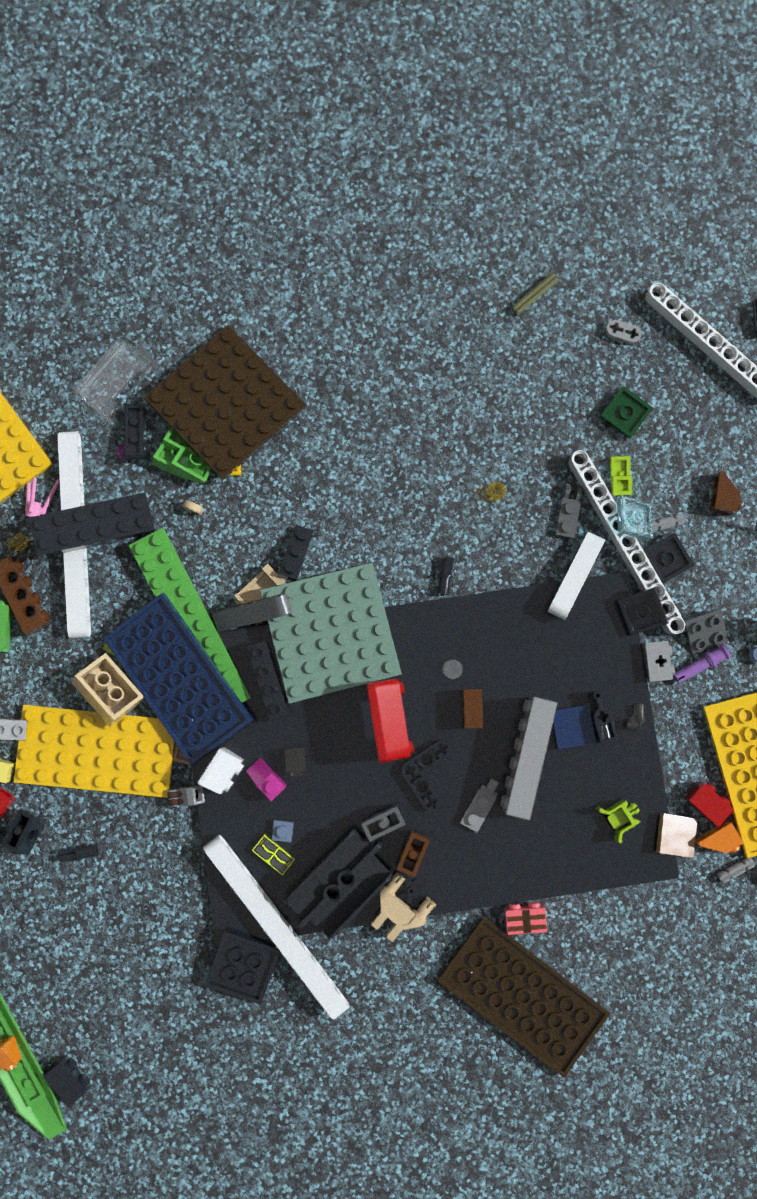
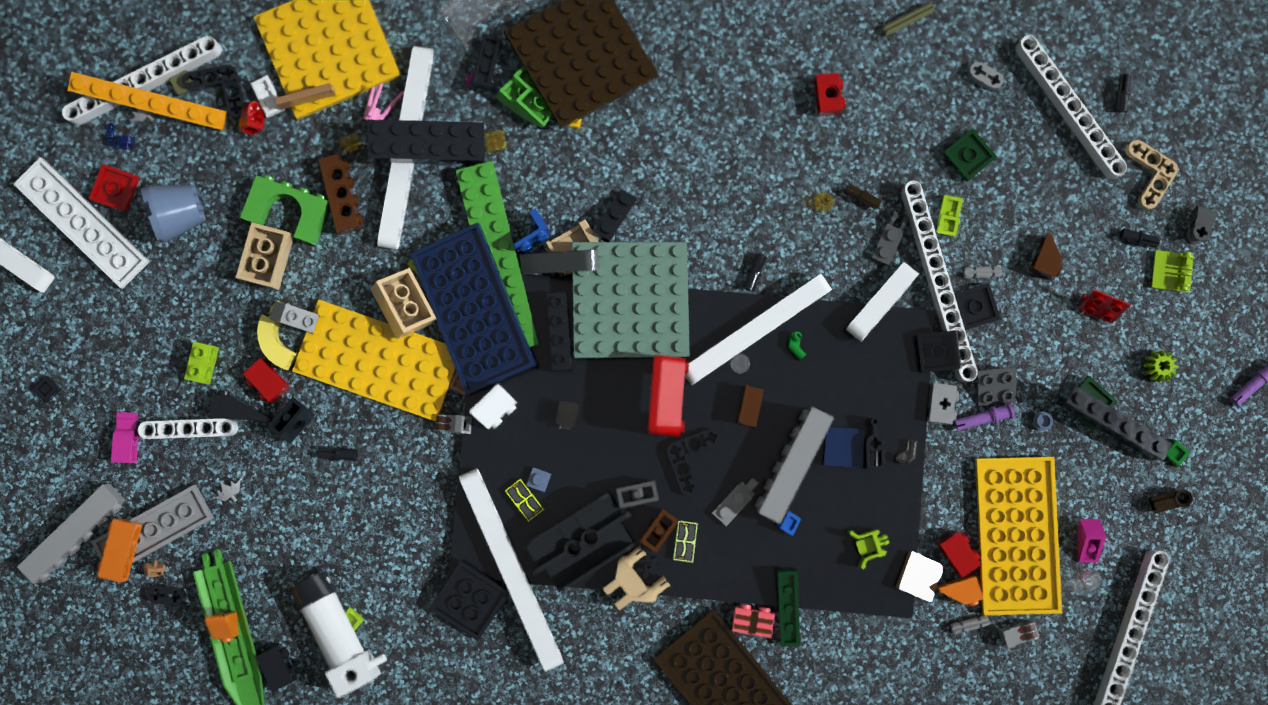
camera: 20 degrees right, 0 degrees up
(130, 1015) = (354, 618): none -> lime tile
(134, 1056) = (335, 635): none -> white piece
(162, 507) = (496, 141): none -> clear yellow plate
(193, 507) = (525, 148): tan tile -> none
(227, 589) = (539, 235): none -> blue bracket
(266, 779) = (535, 426): dark pink slope -> none
(441, 856) = (685, 541): none -> tile
(461, 631) = (757, 328): none -> white beam
(475, 396) = (825, 105): none -> red brick
(501, 639) = (794, 345): none -> green arm
(533, 477) = (863, 196): none -> dark brown axle
(538, 815) = (789, 523): none -> blue plate
(557, 897) = (788, 607): none -> dark green plate
(634, 517) = (952, 259): clear light blue tile -> none

